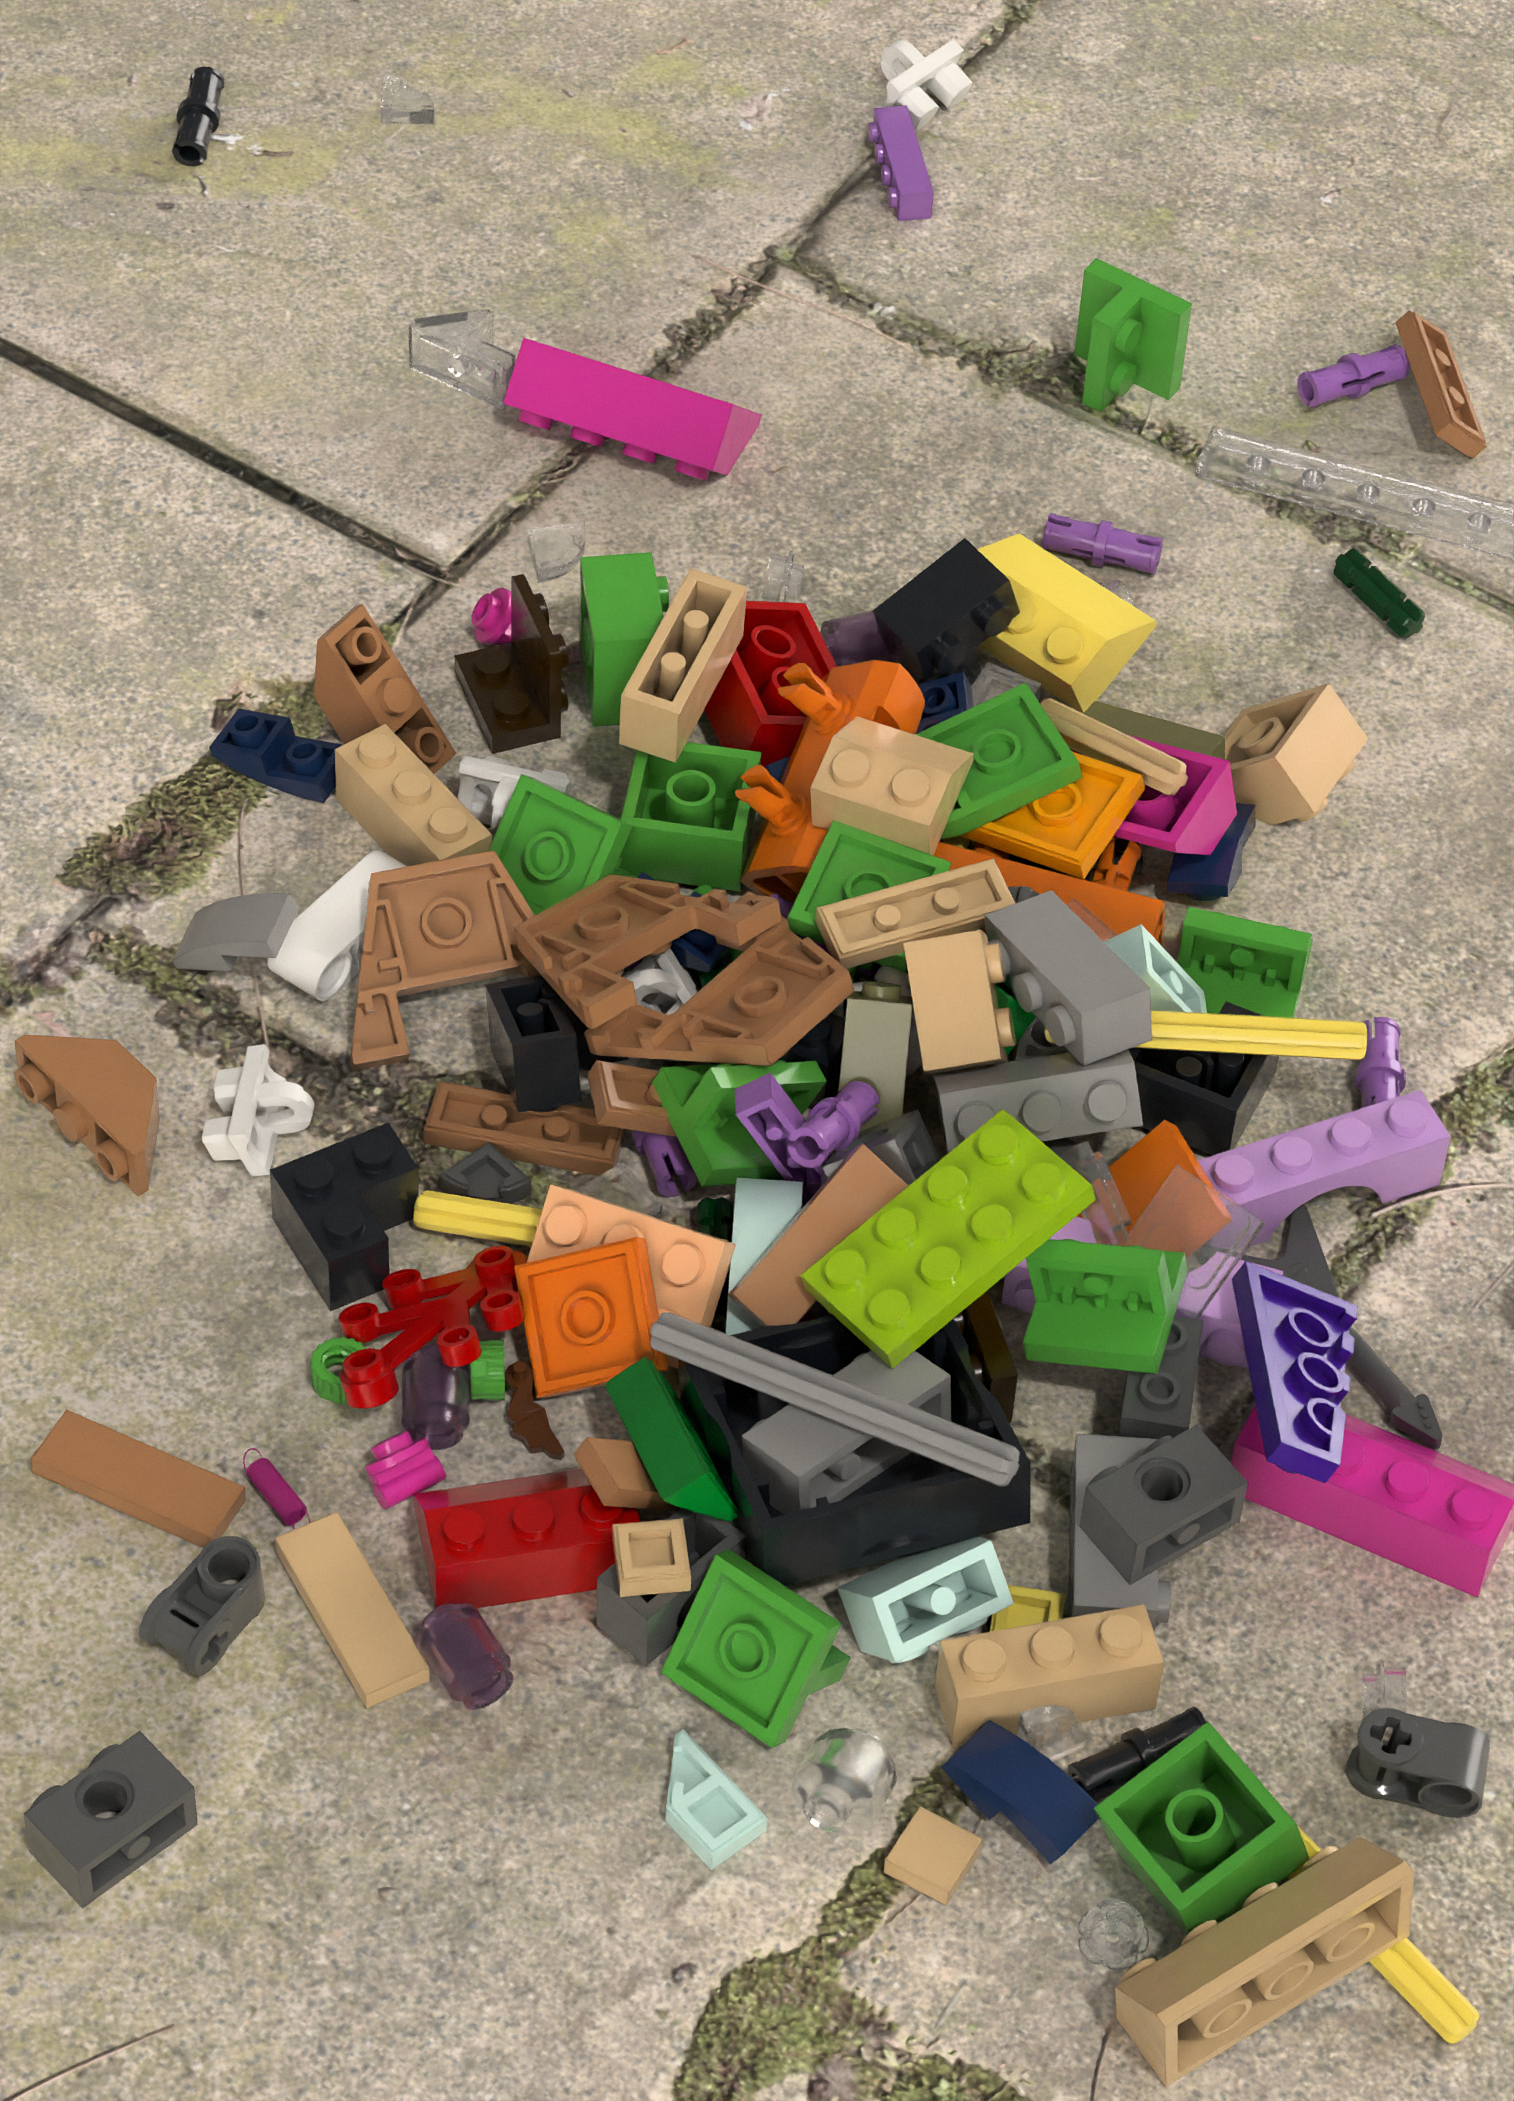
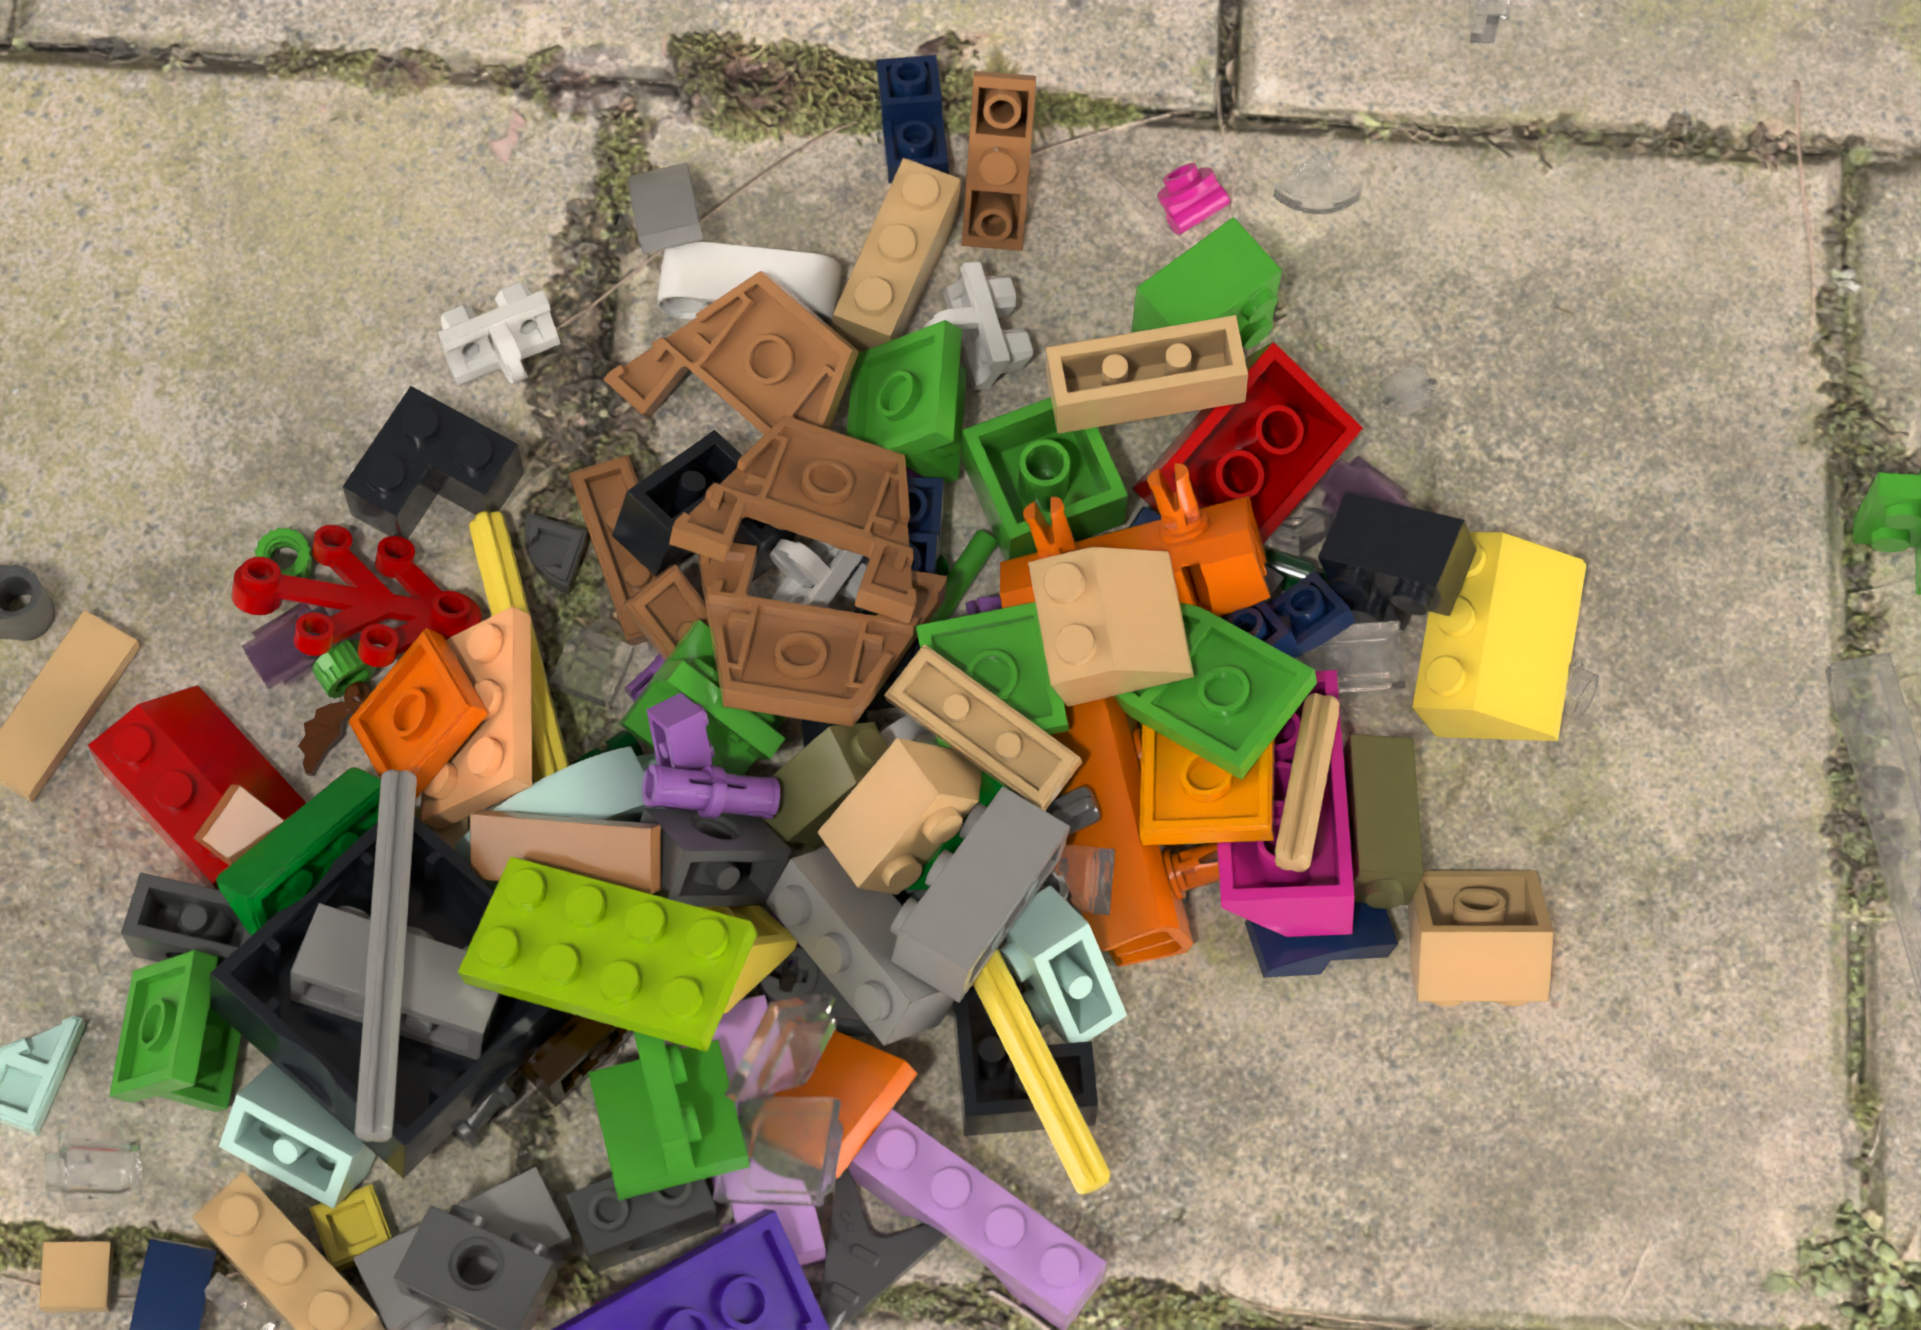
camera: 60 degrees right, 20 degrees up
(96, 1098) = (430, 221): medium nougat slope -> none
(138, 1479) = (88, 477): medium nougat tile -> none
(276, 1490) = (139, 583): dark pink piece -> none
(402, 1468) = (213, 661): dark pink plate -> none
(465, 1655) = (49, 815): clear purple brick -> none
(518, 684) = (1114, 247): dark brown bracket -> none
(628, 408) = (1529, 145): dark pink slope -> none
(651, 1557) = (174, 902): tan tile -> none
(1102, 543) = (1658, 637): medium lavender pin -> none
(1244, 962) = (1190, 1035): bright green bracket -> none
(1379, 593) = (1775, 916): dark green axle -> none
(1380, 1073) = (1145, 1217): medium lavender pin -> none

